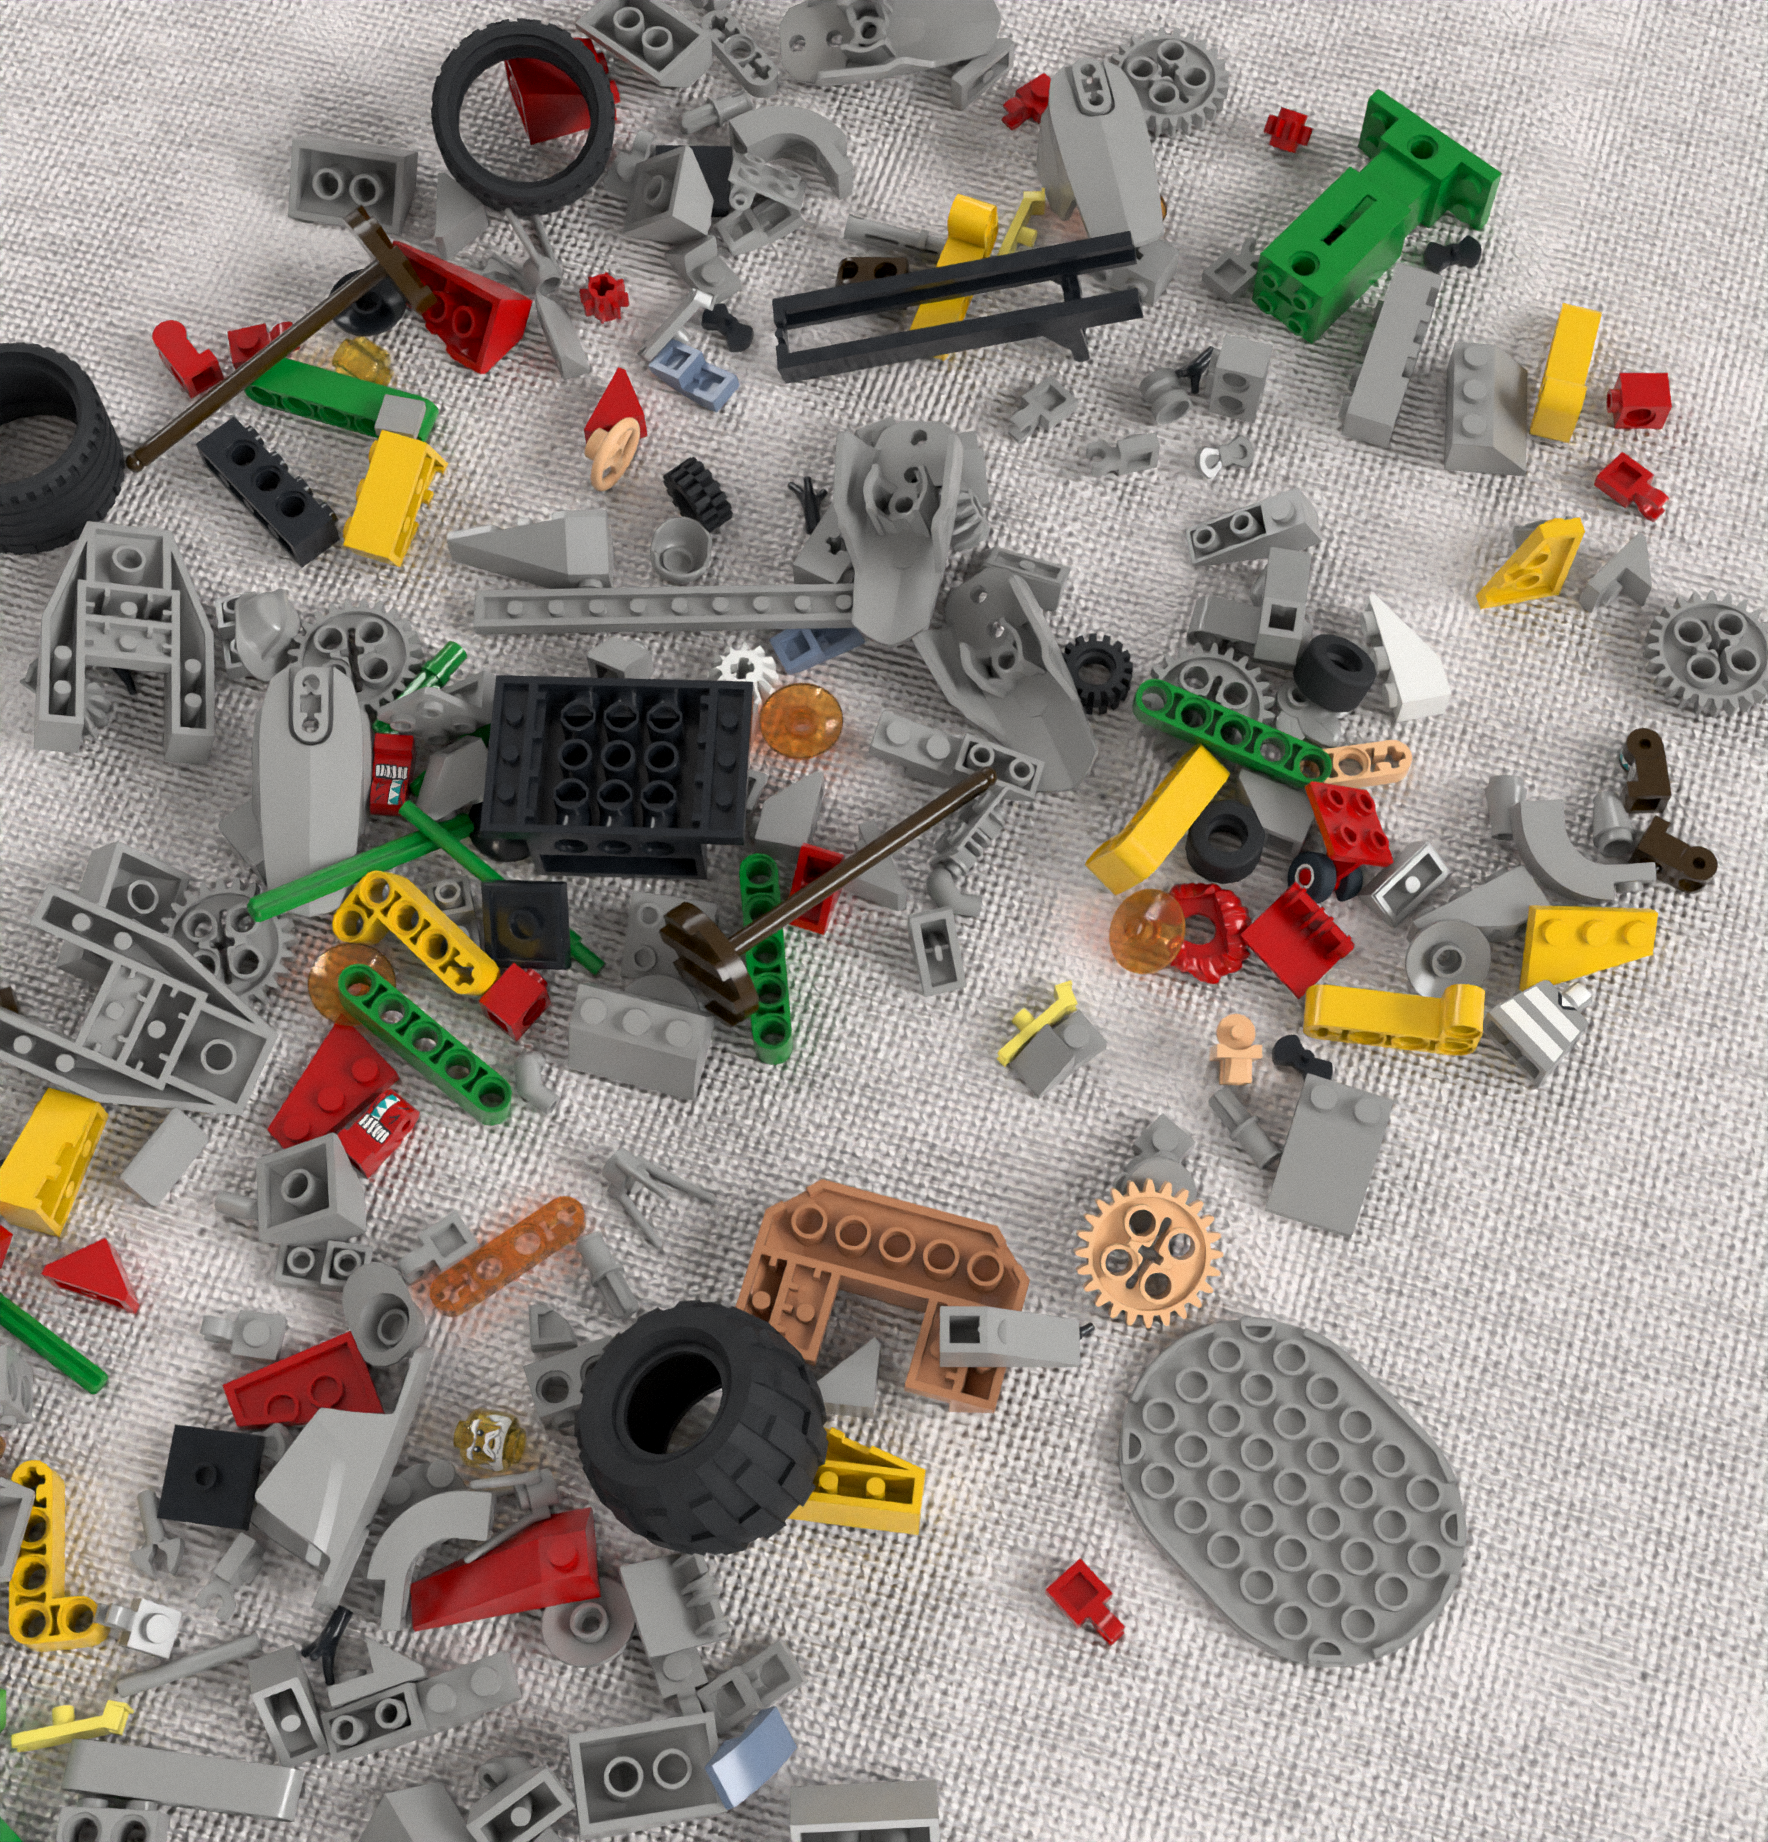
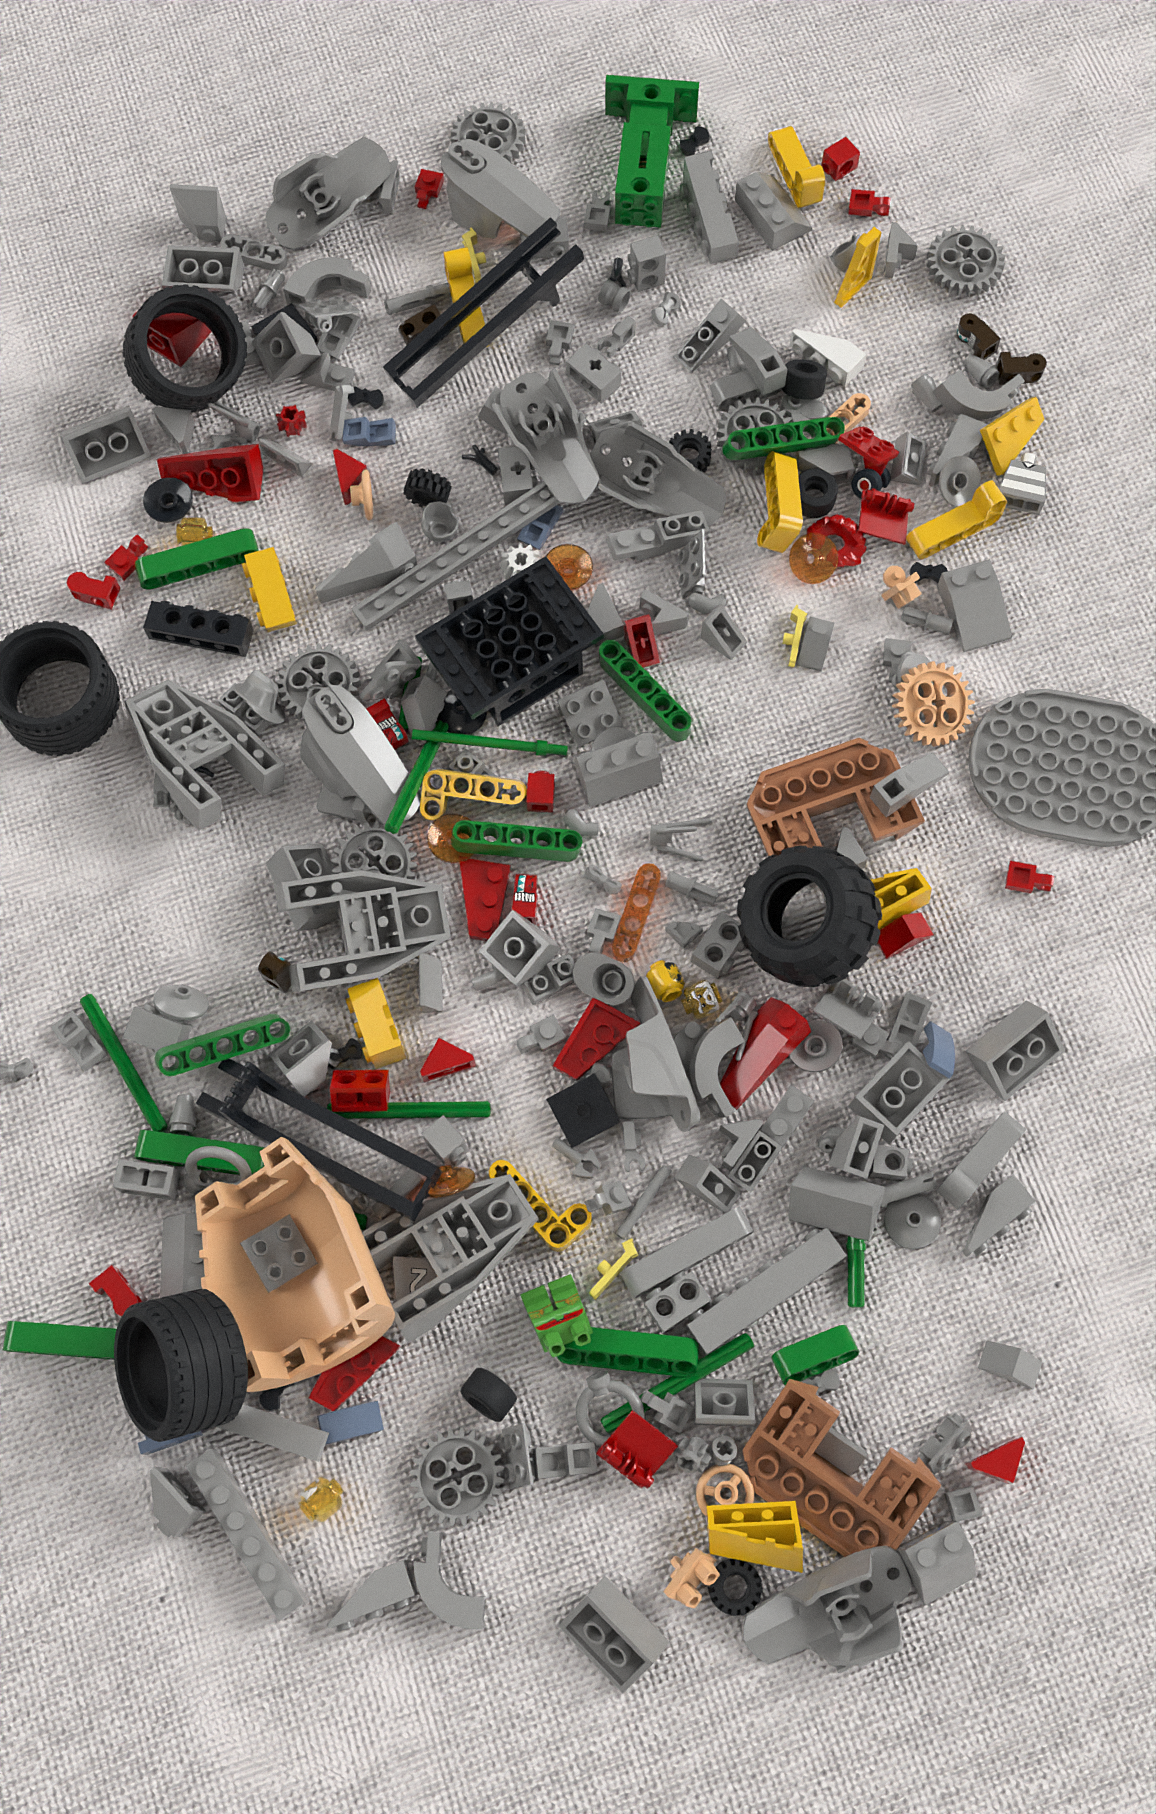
camera: 35 degrees left, 5 degrees up
(328, 1641) = (700, 1144): black bar -> none
(387, 263) = (174, 470): dark brown piece -> none
(400, 416) = (241, 544): light grey tile -> none
(432, 674) = (366, 667): green axle -> none
(463, 1378) = (665, 980): none -> yellow head
(496, 1164) = (610, 885): none -> light grey piece
(526, 923) = (518, 750): black plate -> none
(714, 961) = (631, 701): dark brown piece -> none
(847, 1553) = (903, 934): none -> red slope
(1052, 482) = (593, 372): none -> light grey brick
(1288, 130) = (568, 125): red gear -> none

